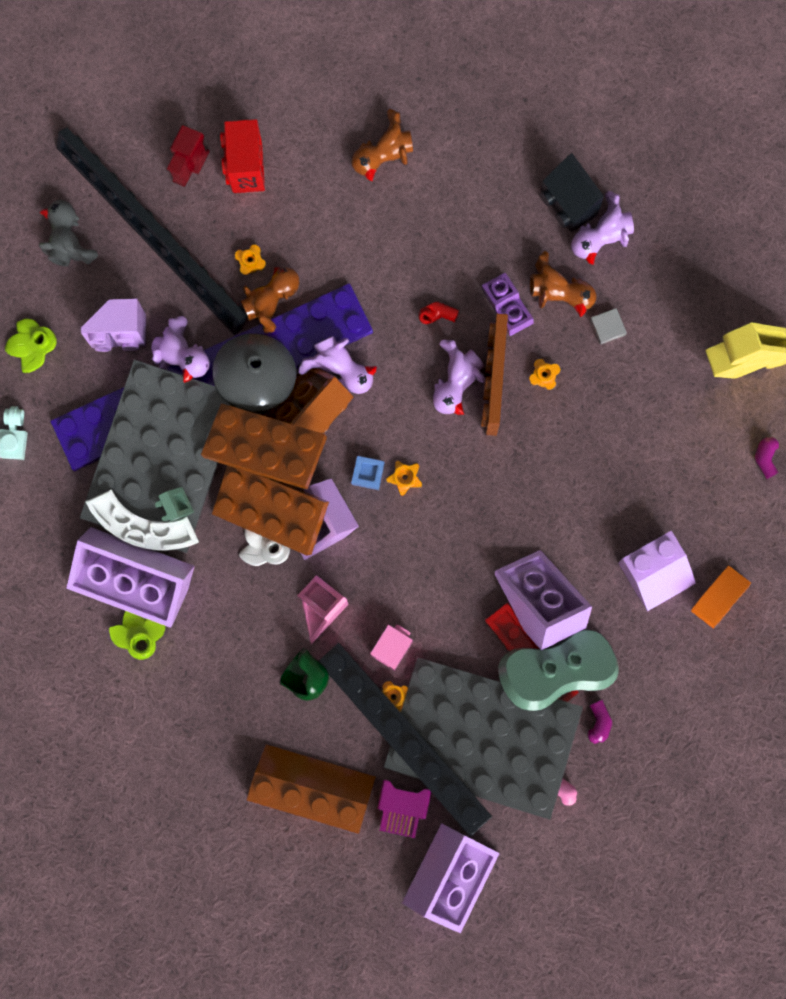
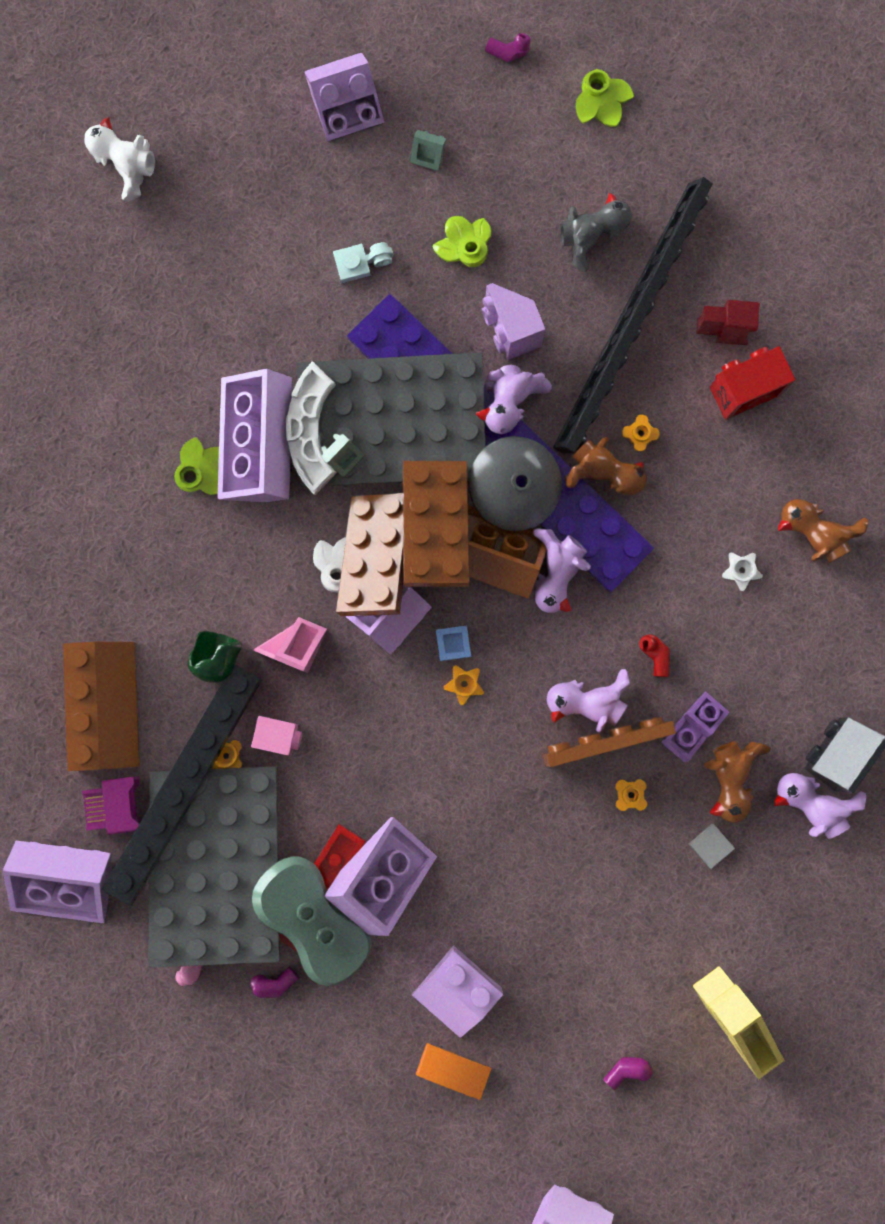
camera: 70 degrees right, 5 degrees up
(388, 216) = (748, 564): none -> white plate

